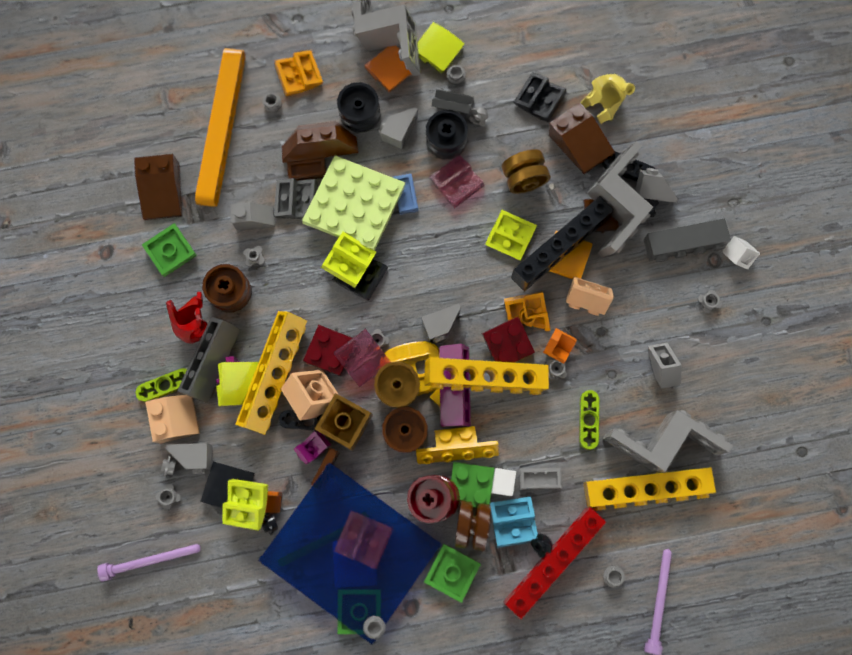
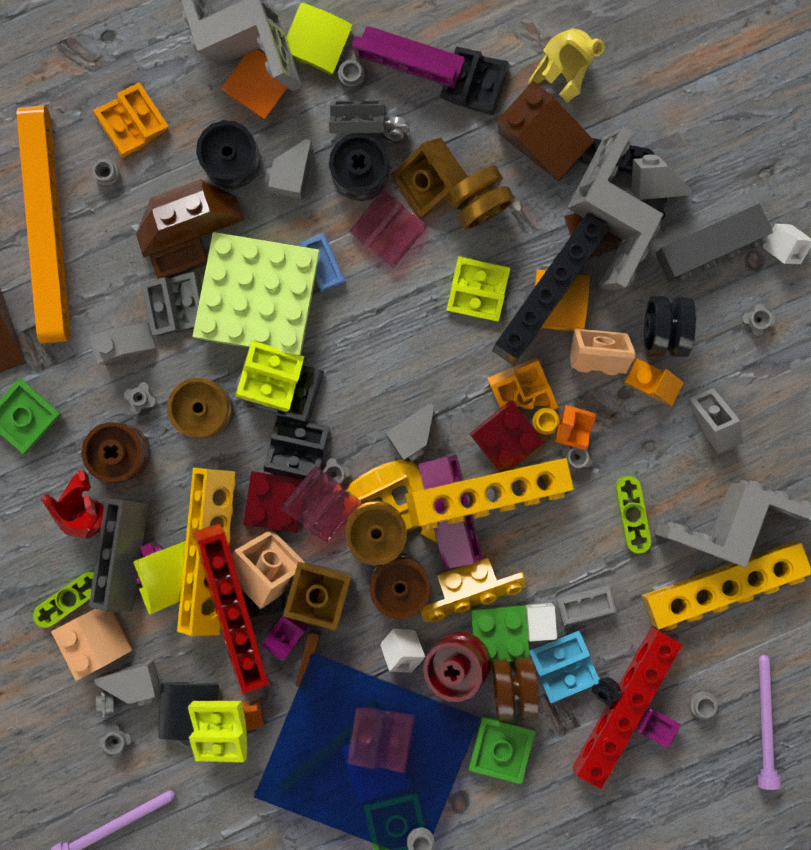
camera: 20 degrees left, 10 degrees up
(269, 524) = (255, 745): black plate -> none
(278, 415) = (230, 608): none -> red brick
(286, 262) = (186, 417): none -> pearl gold wheel
(354, 315) = (295, 447): none -> black slope
(395, 479) = (402, 650): none -> white panel
(492, 150) = (428, 176): none -> pearl gold slope
(497, 71) = (409, 56): none -> magenta panel
(539, 338) = (545, 421): none -> yellow plate
(574, 583) = (658, 727): none -> magenta bracket
(625, 329) = (654, 382): none -> light orange slope
(643, 288) = (669, 326): none -> black wheel

